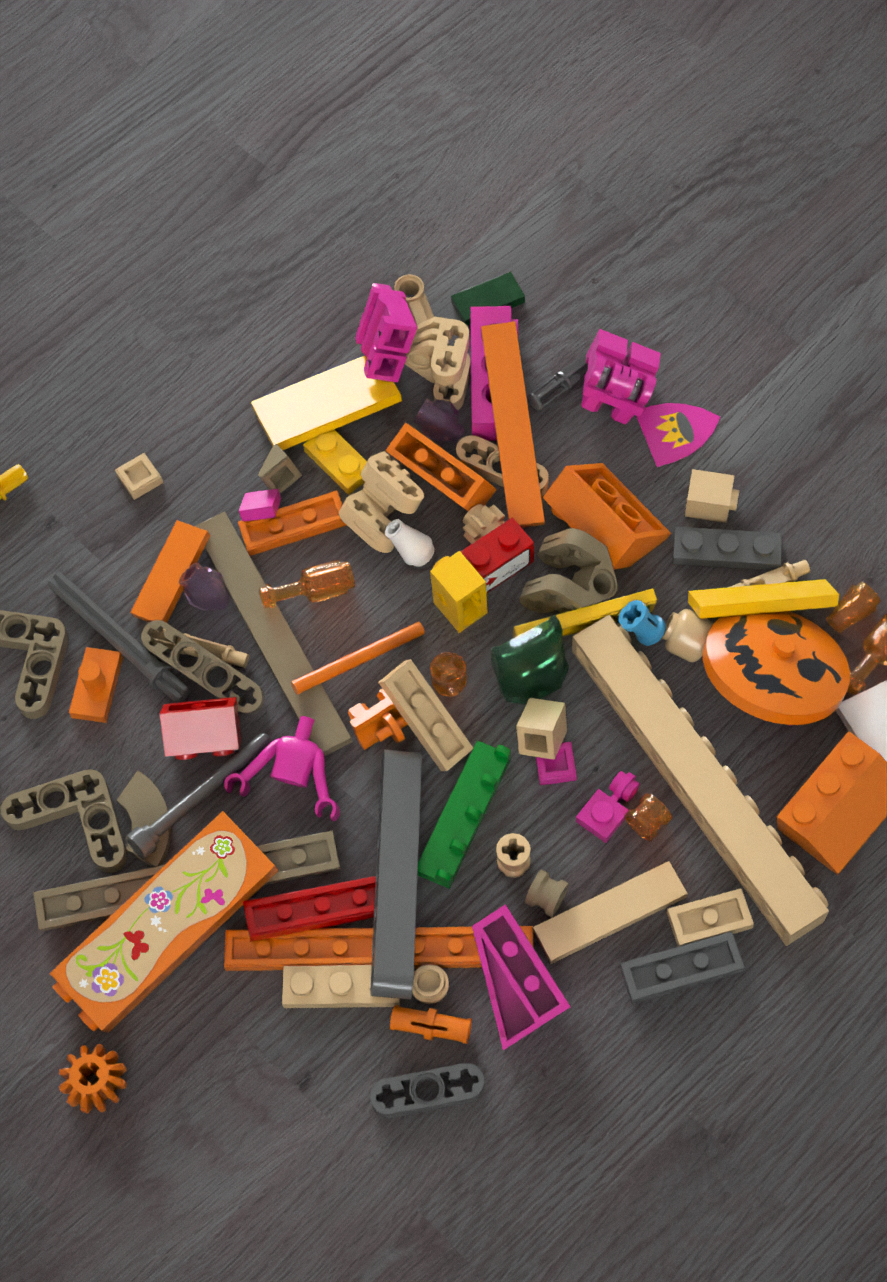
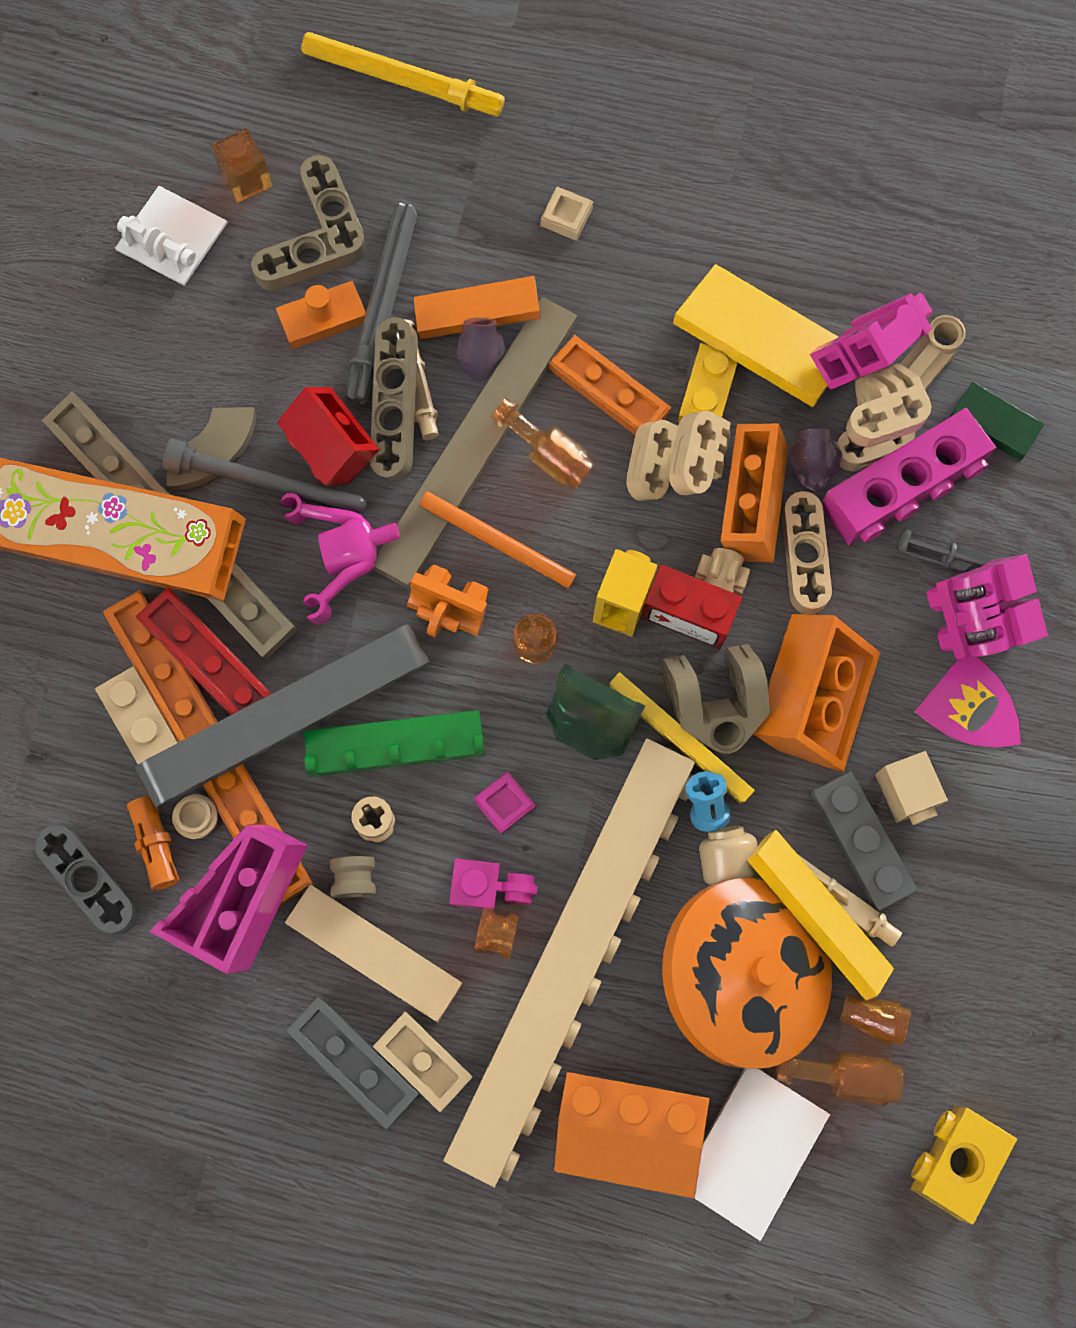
camera: 50 degrees right, 10 degrees up
(87, 807) = (191, 385): dark tan beam -> none
(260, 505) = (604, 343): dark pink tile -> none
(278, 470) = (653, 337): dark tan slope -> none
(410, 543) = (652, 515): white cone -> none
(426, 715) = (466, 642): tan plate -> none
(512, 424) = (853, 531): orange tile -> none
(541, 728) = (526, 767): tan brick -> none

